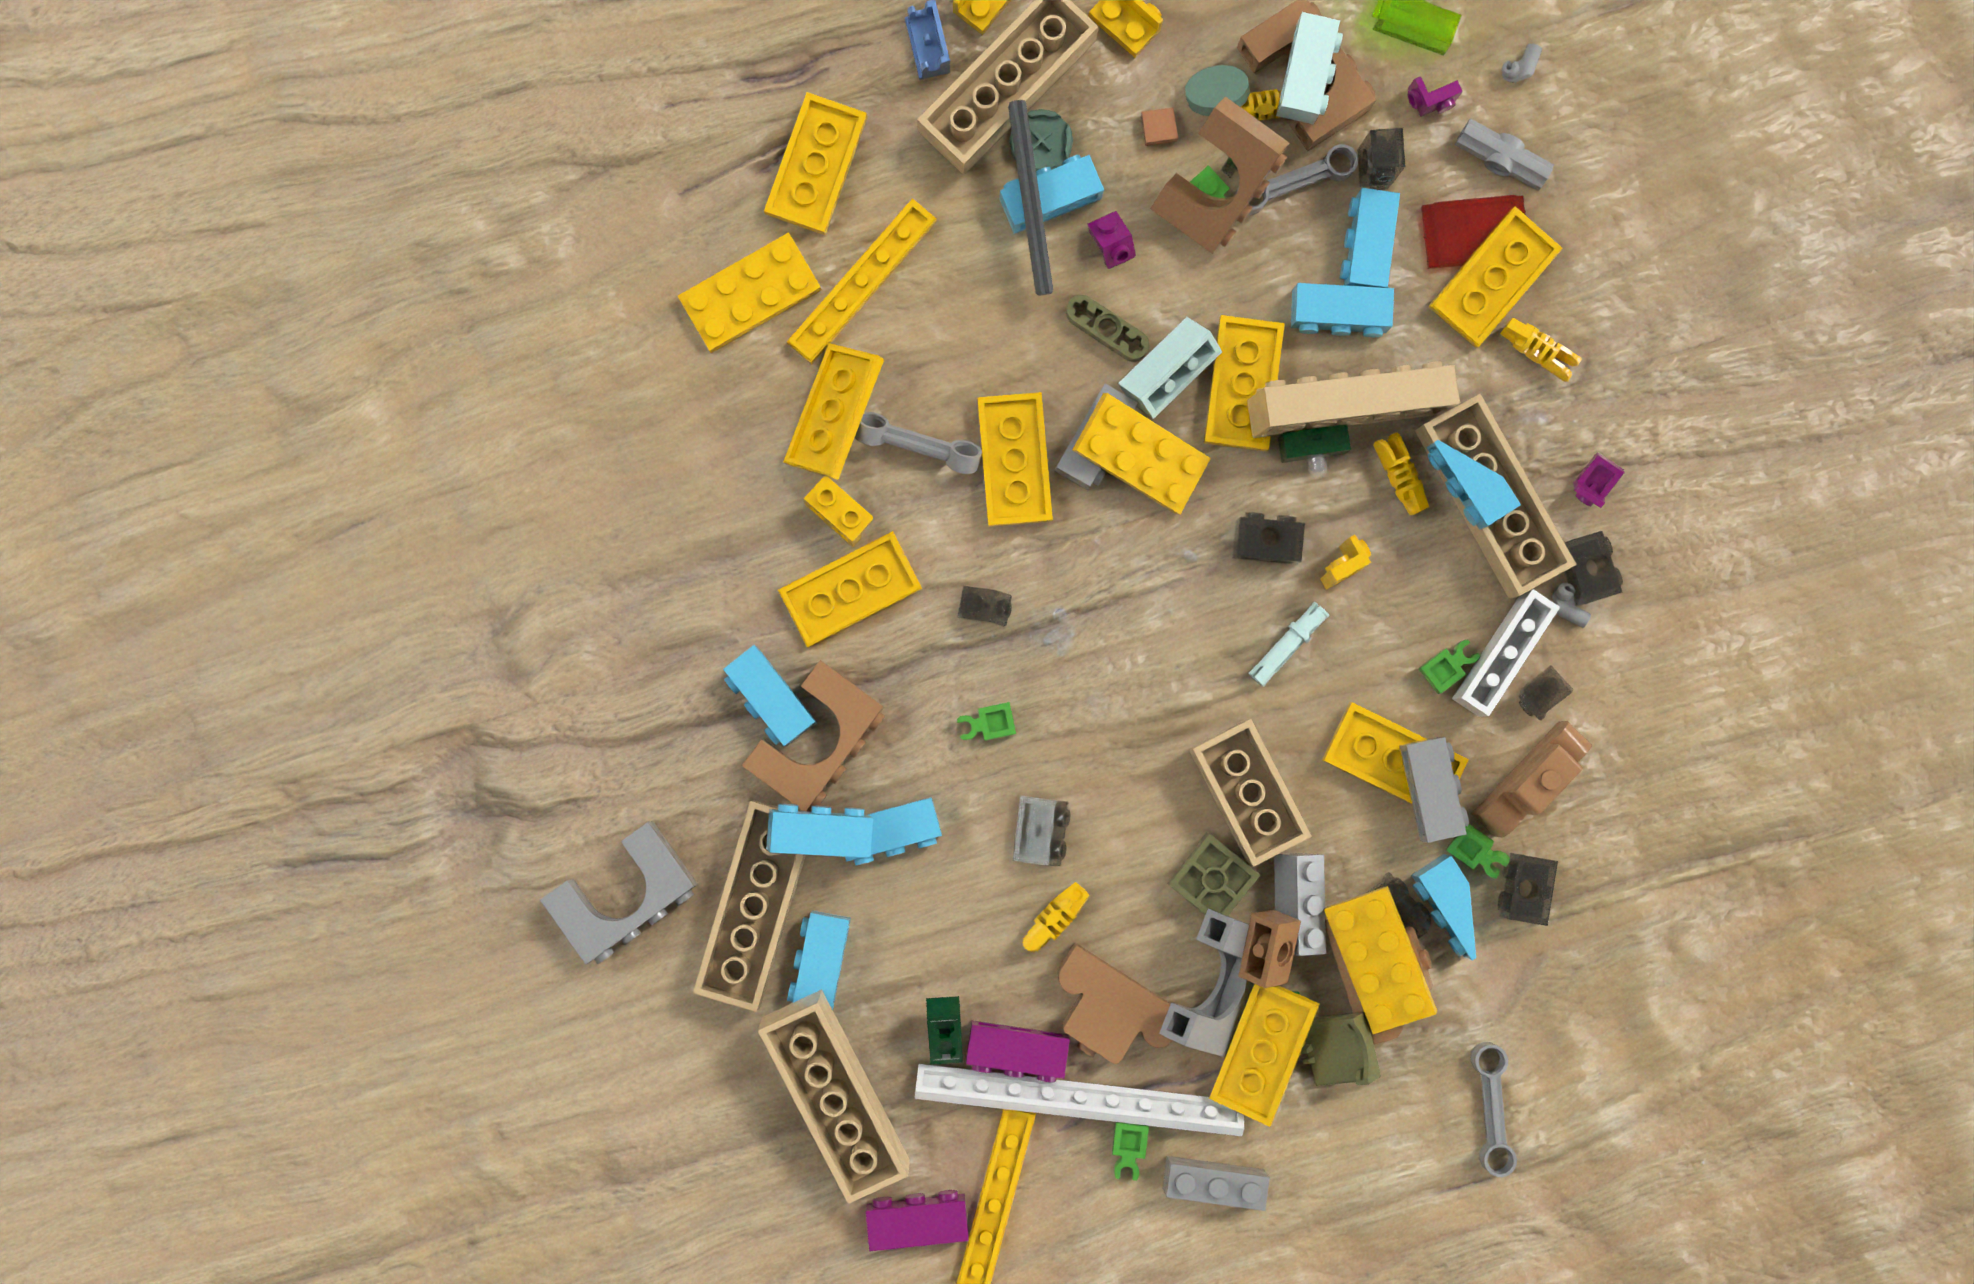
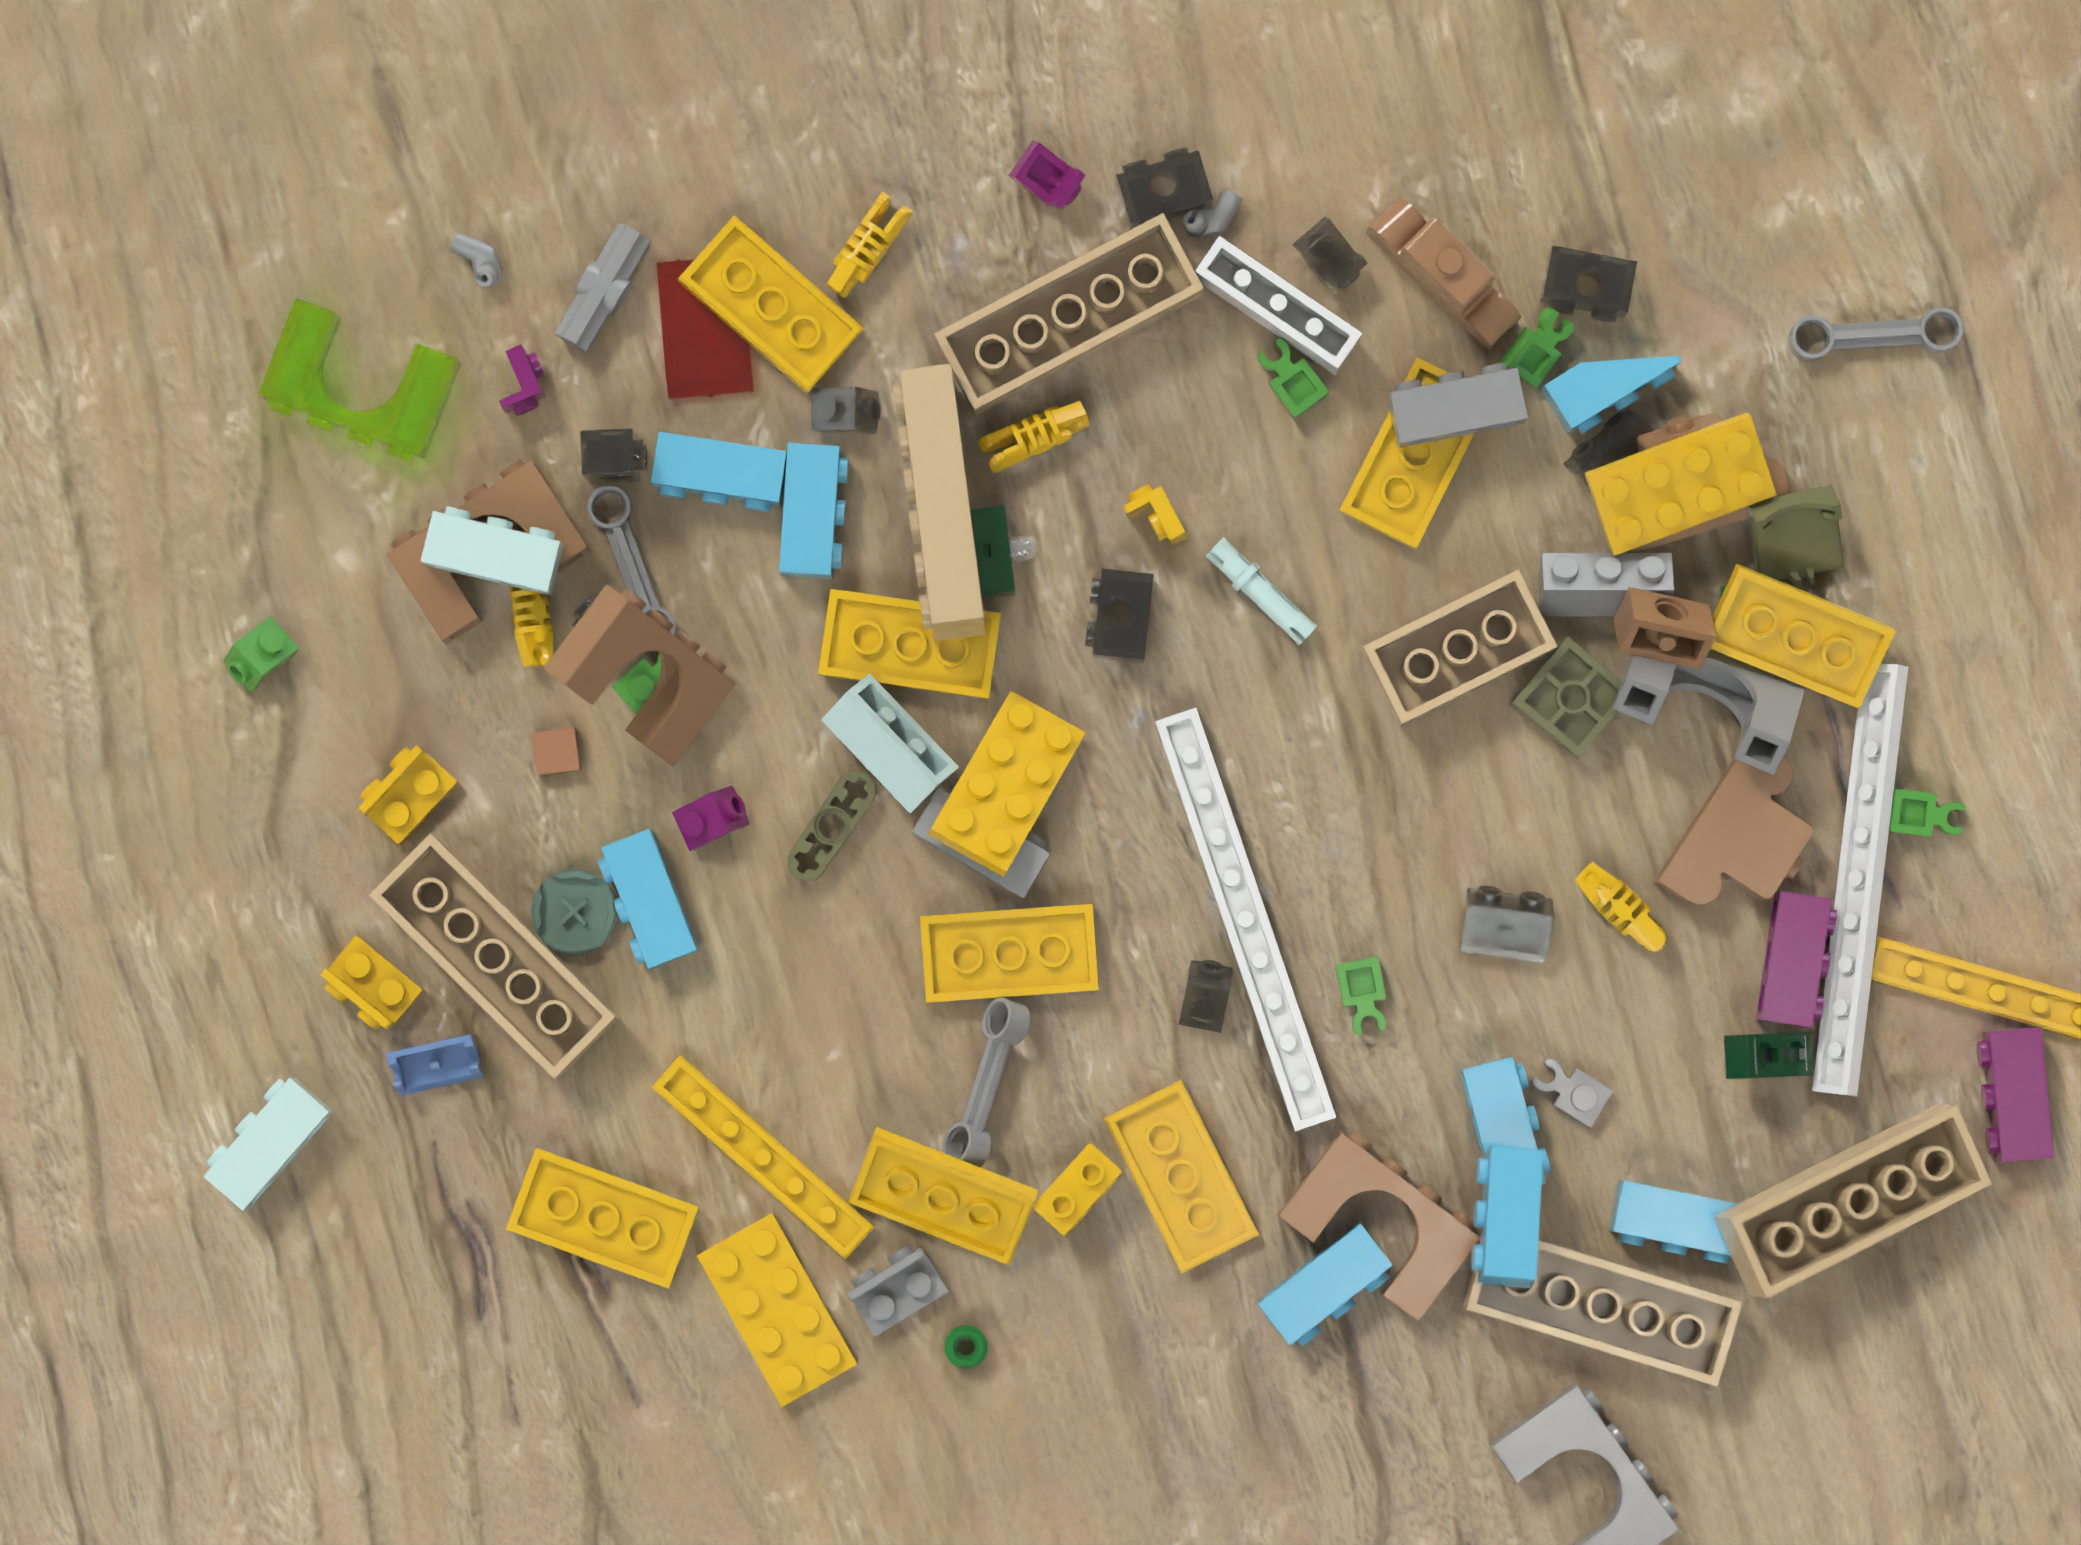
camera: 75 degrees left, 0 degrees up
(715, 424) = (959, 1359): none -> green plate
(764, 380) = (897, 1290): none -> light grey bracket
(913, 886) = (1578, 1095): none -> light grey plate
(1030, 197) = (662, 927): dark grey axle -> none
(1042, 634) = (1245, 919): none -> white plate
(1214, 83) = (512, 673): sand green tile -> none
(1215, 1183) = (1969, 702): light grey brick -> none
(1417, 334) = (845, 410): none -> clear smoke bracket
(1478, 488) = (1066, 338): medium azure slope -> none

